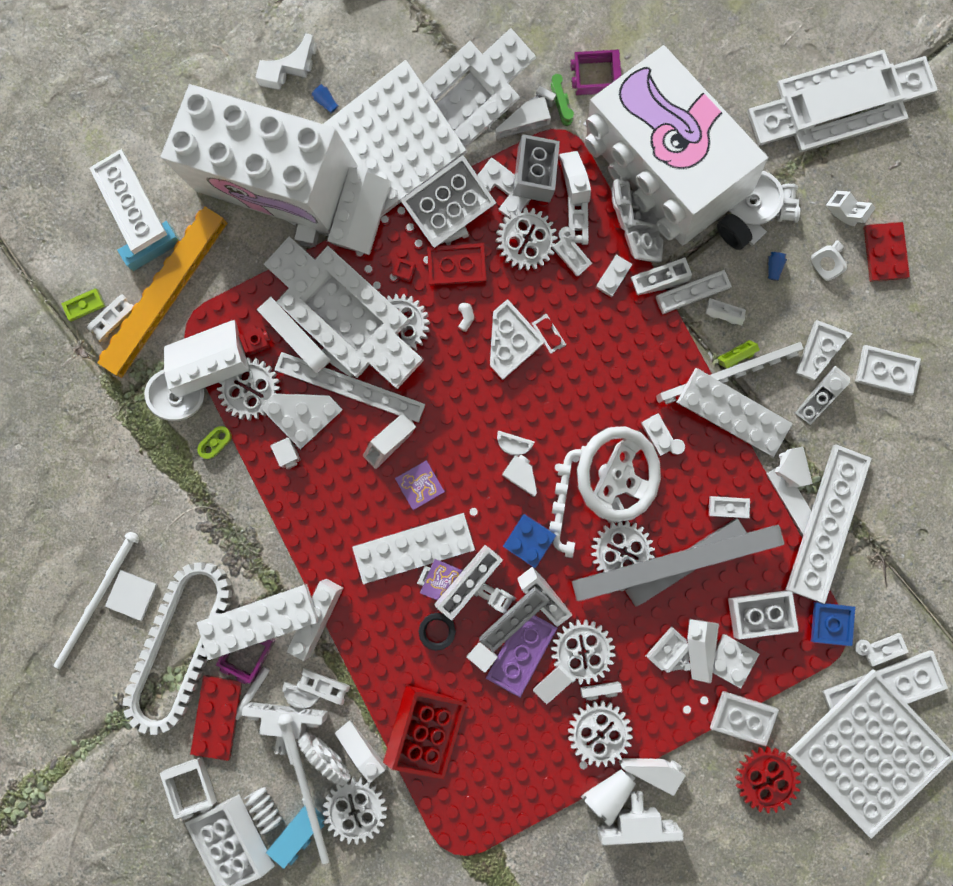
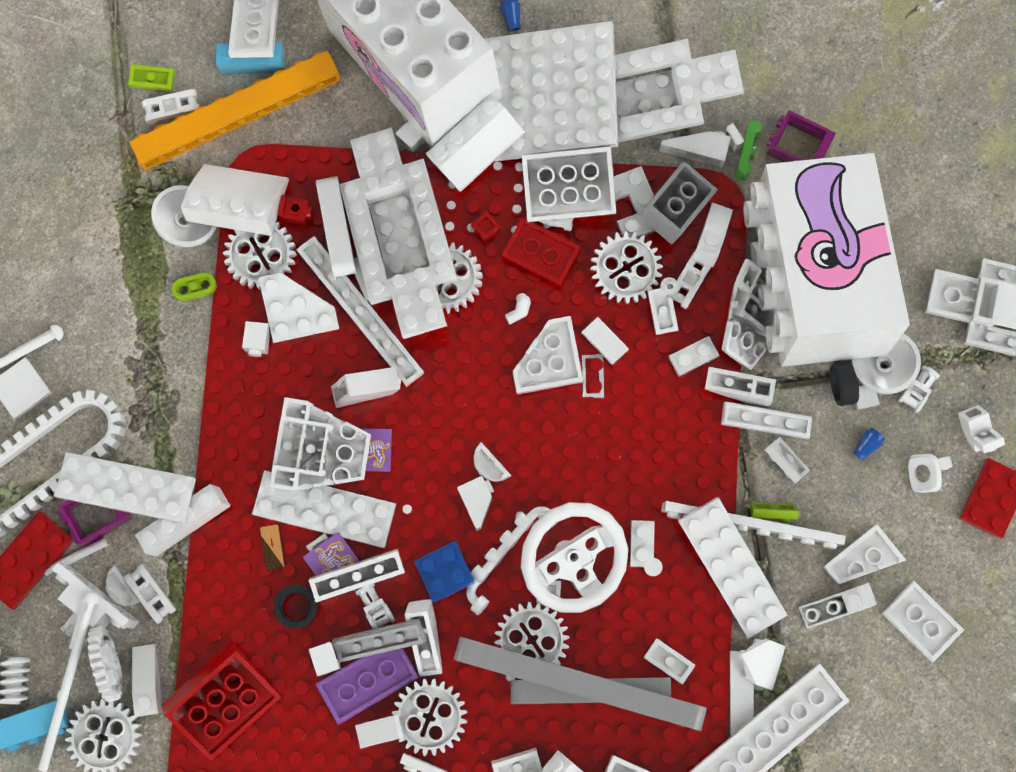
camera: 30 degrees right, 5 degrees down
(381, 508) = (316, 449): none -> white wedge
(392, 599) = (272, 547): none -> clear orange sticker
(542, 302) = (605, 341): none -> white tile

